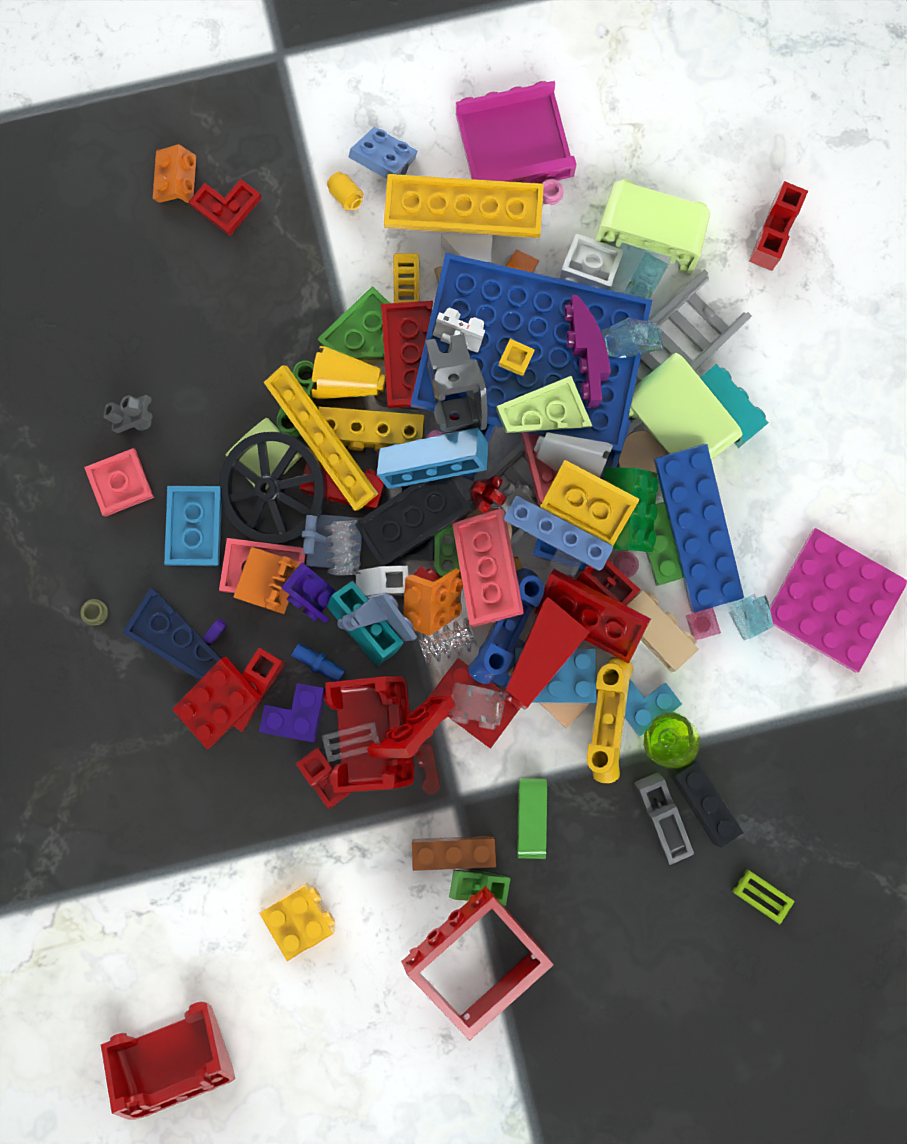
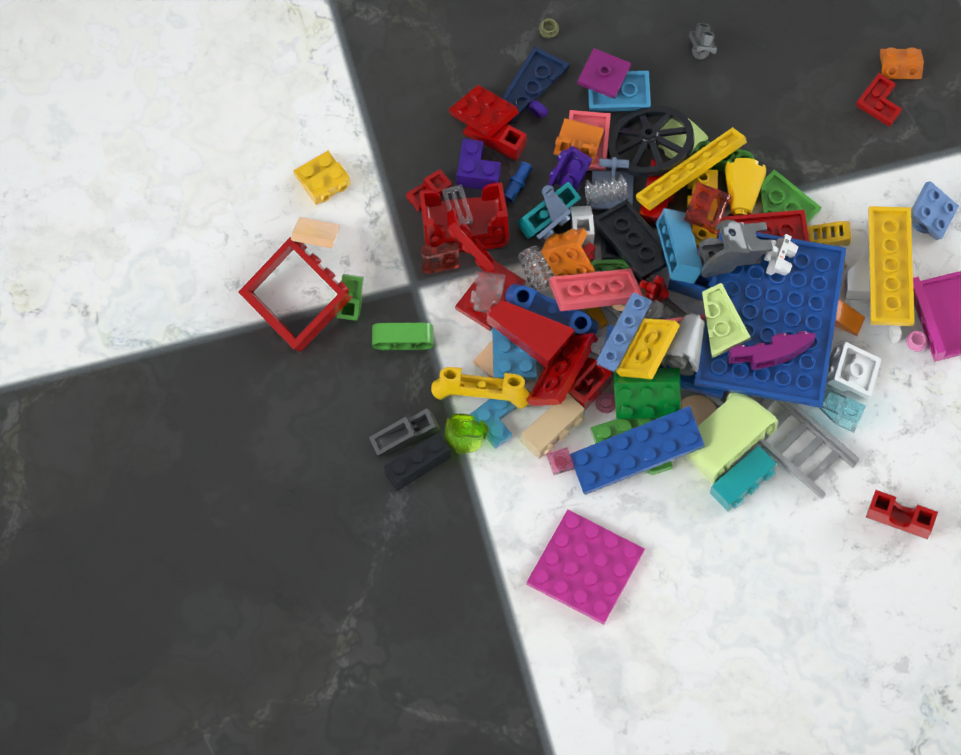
camera: 90 degrees right, 15 degrees down
(119, 482) = (650, 39): coral plate -> none
(166, 1064) = (218, 93): red windscreen -> none
(170, 542) = (604, 73): none -> magenta plate
(345, 191) = (900, 185): yellow brick -> none
(376, 428) = (701, 204): none -> clear red plate
(391, 935) = (315, 232): none -> light nougat tile
(453, 853) = (375, 280): dark orange brick -> none
(516, 357) = (762, 298): yellow plate -> none
(632, 338) = (786, 385): clear light blue slope -> none
(655, 223) = (893, 418): yellowish green windscreen -> none
(743, 883) = (335, 525): lime tile -> none
(752, 616) = (567, 493): clear light blue slope -> none

